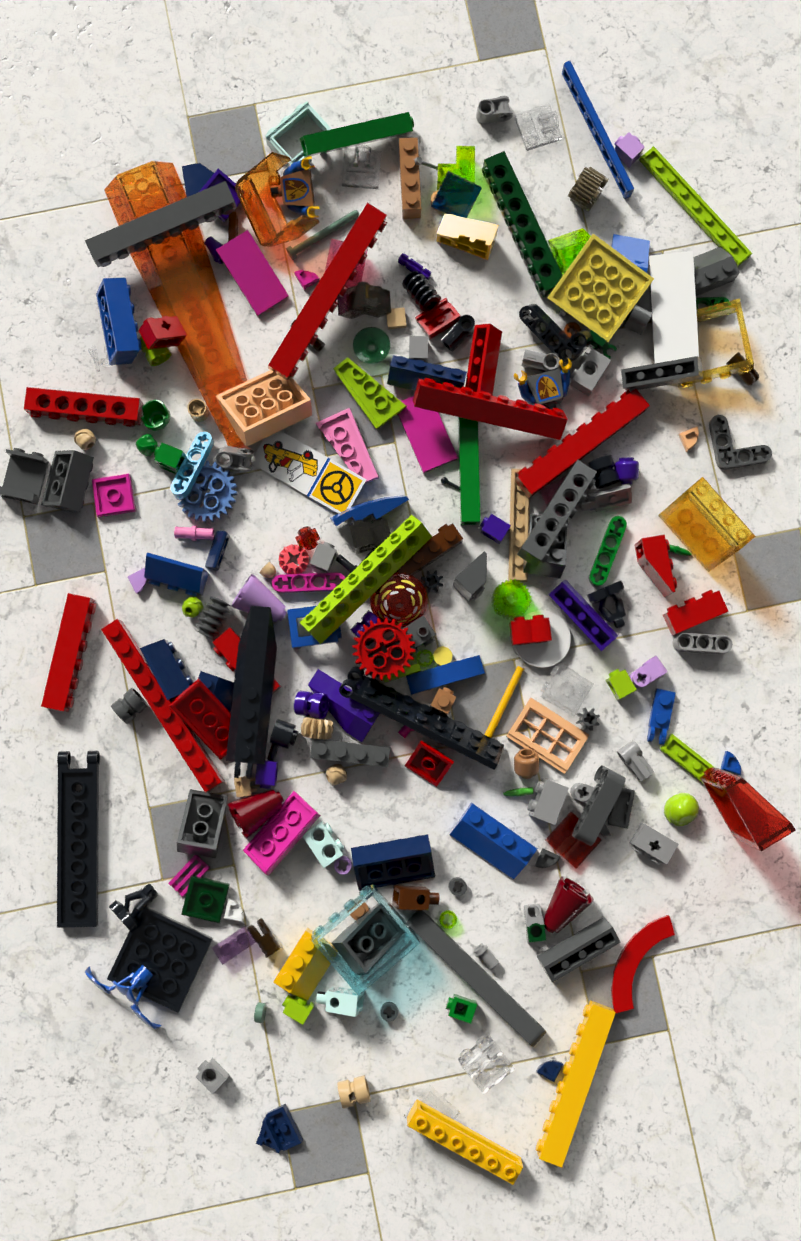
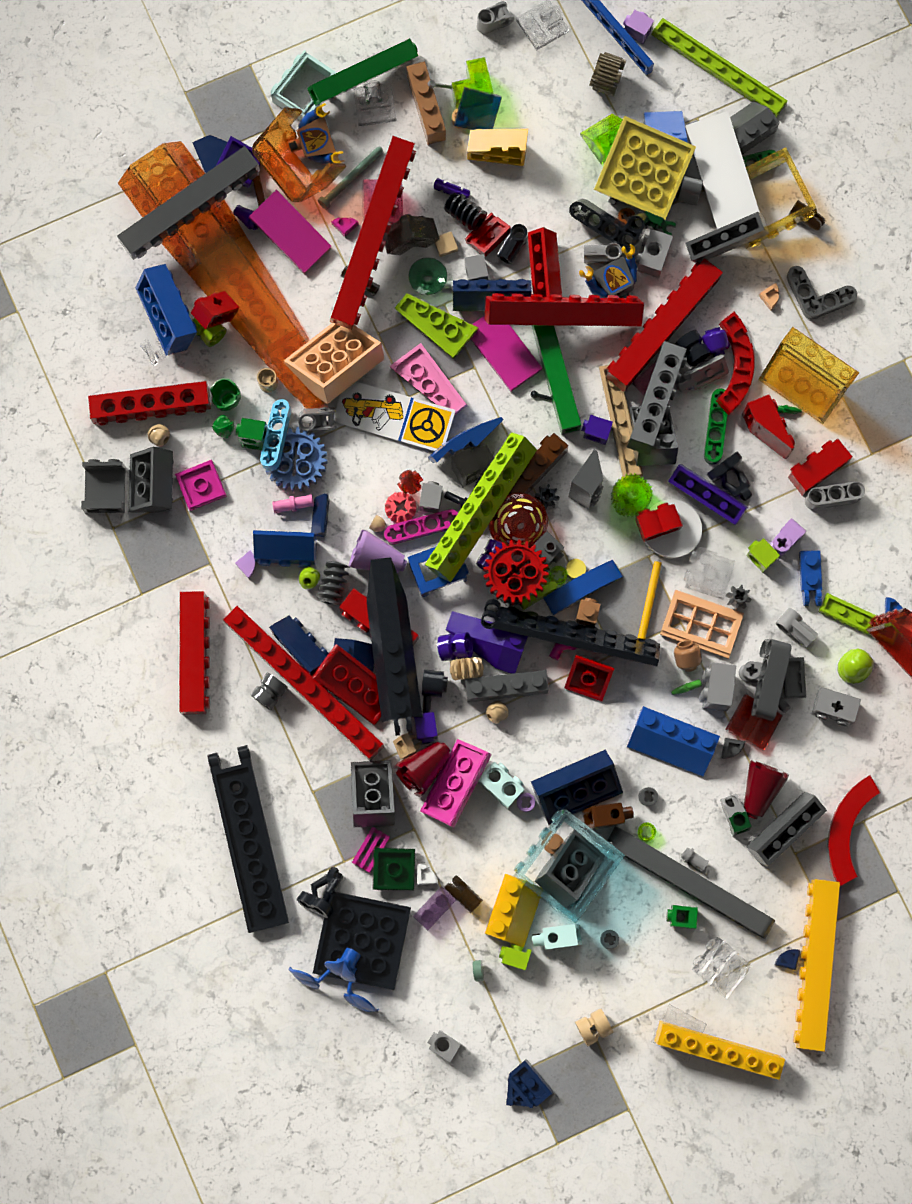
camera: 10 degrees left, 5 degrees down
(500, 165) = (514, 69): dark green brick -> none
(647, 496) = (743, 363): none -> red tile

